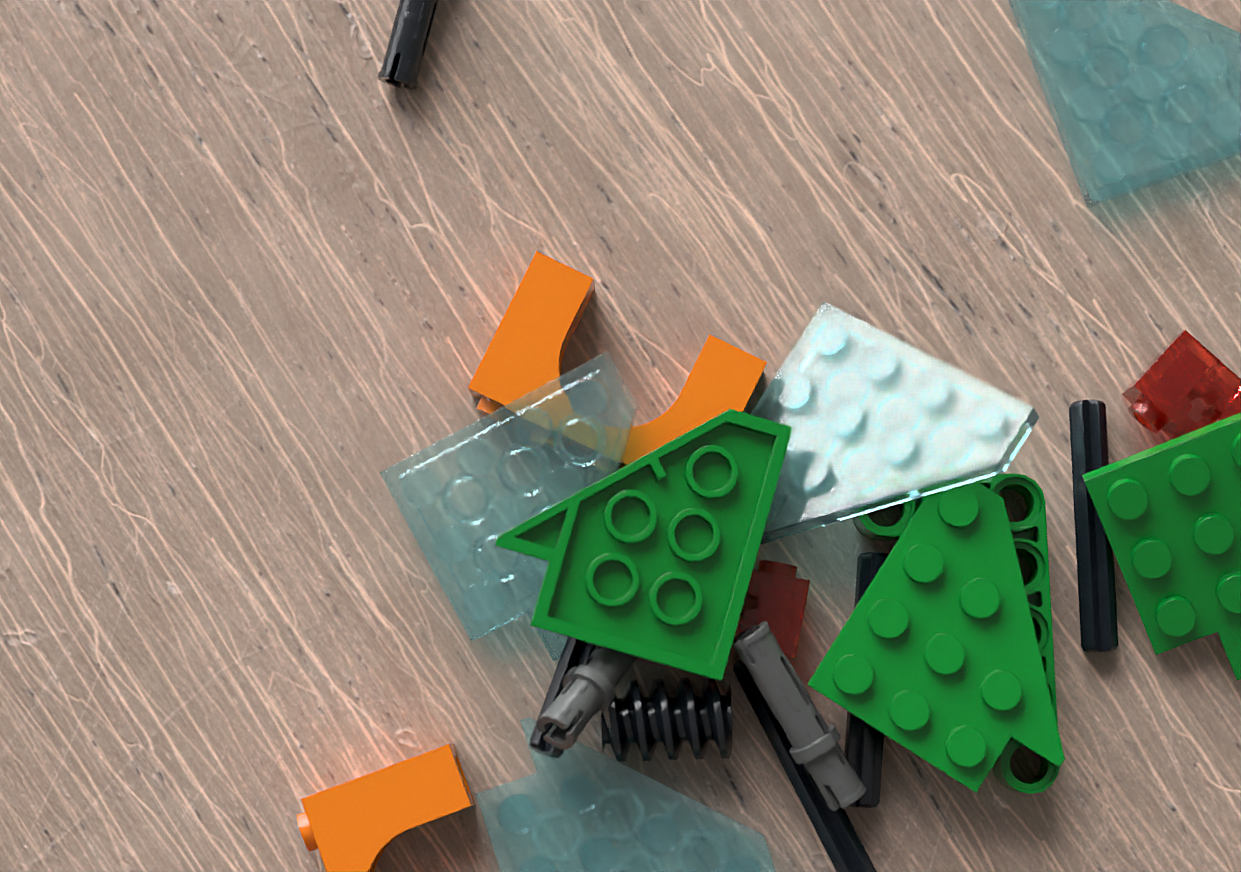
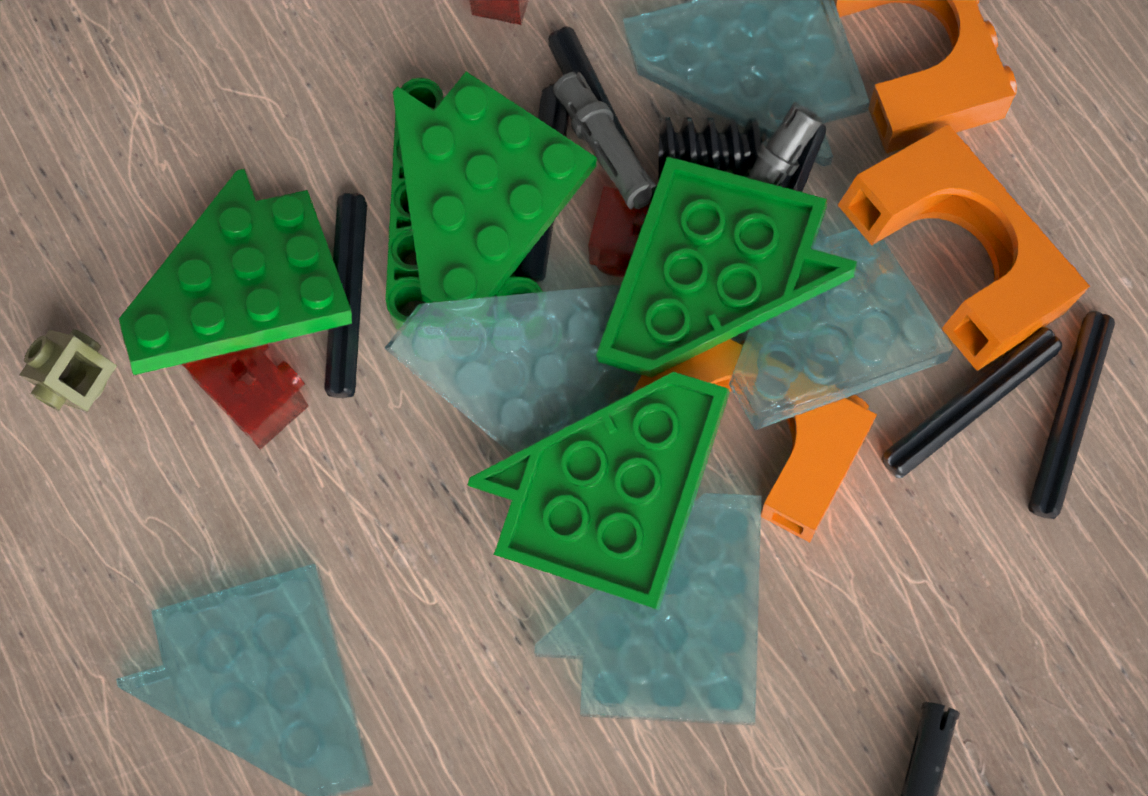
camera: 175 degrees left, 10 degrees down
(244, 419) = (1071, 415): none -> black axle
(287, 569) = (948, 182): none -> orange arch
(356, 427) = (971, 402): none -> black axle
(685, 158) = (693, 653): none -> clear light blue wing
(766, 280) = (611, 489): none -> green wing

